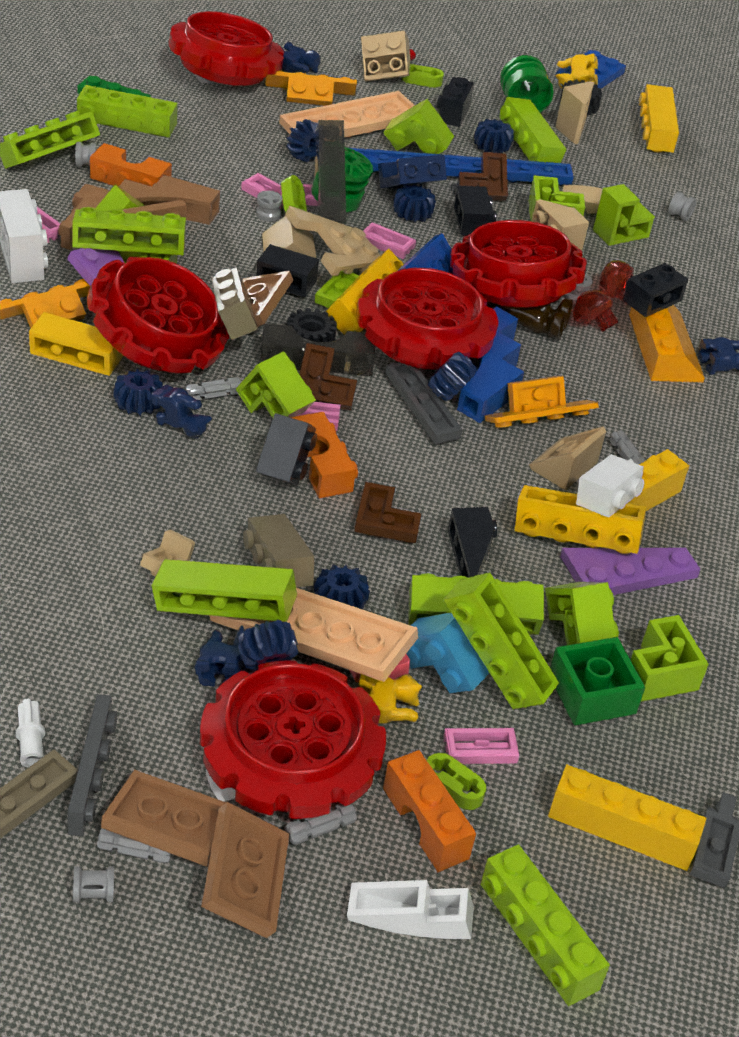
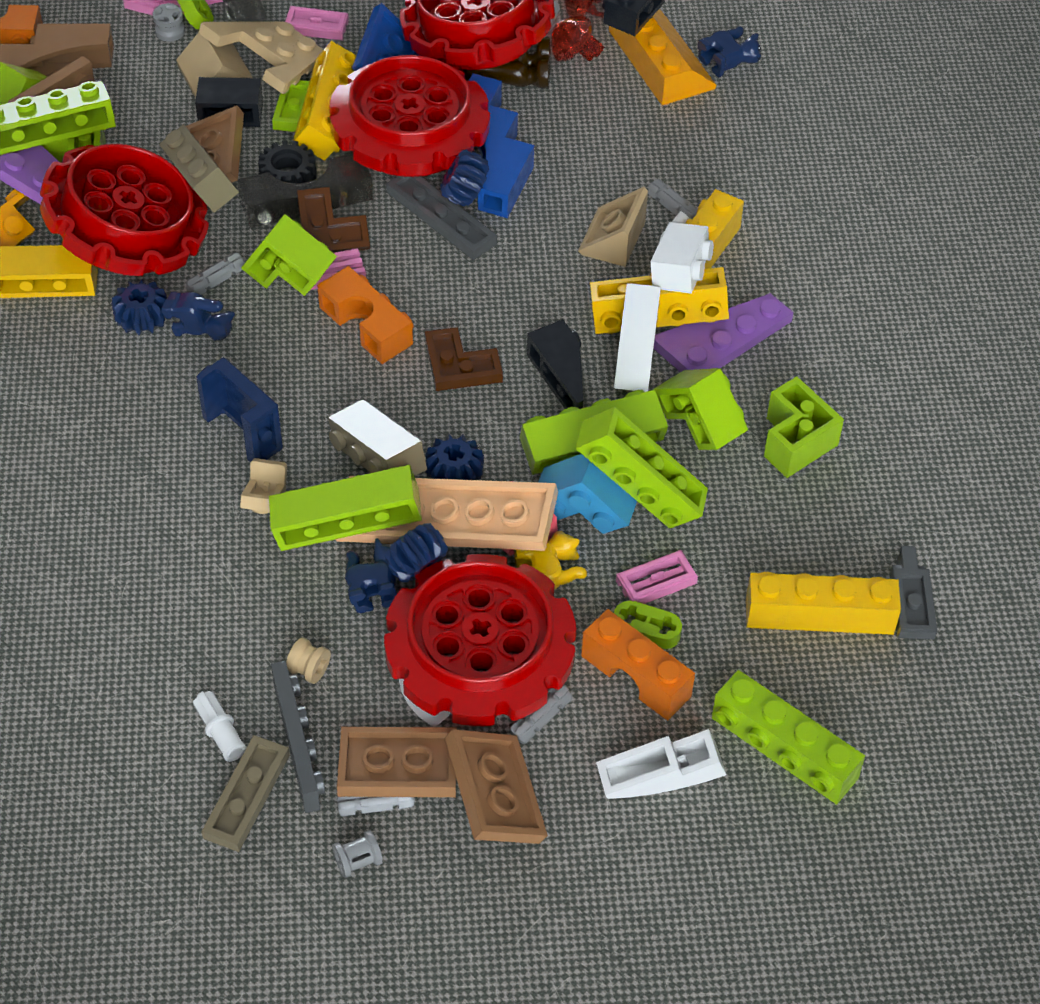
camera: 15 degrees left, 10 degrees up
(134, 705) = (308, 660): none -> tan wheel
(174, 474) = (231, 393): none -> dark blue panel
(287, 450) = (332, 325): black brick -> none
(538, 399) = (561, 172): light orange bracket -> none
(547, 539) = (637, 337): none -> white slope
(596, 681) = (742, 472): green brick -> none

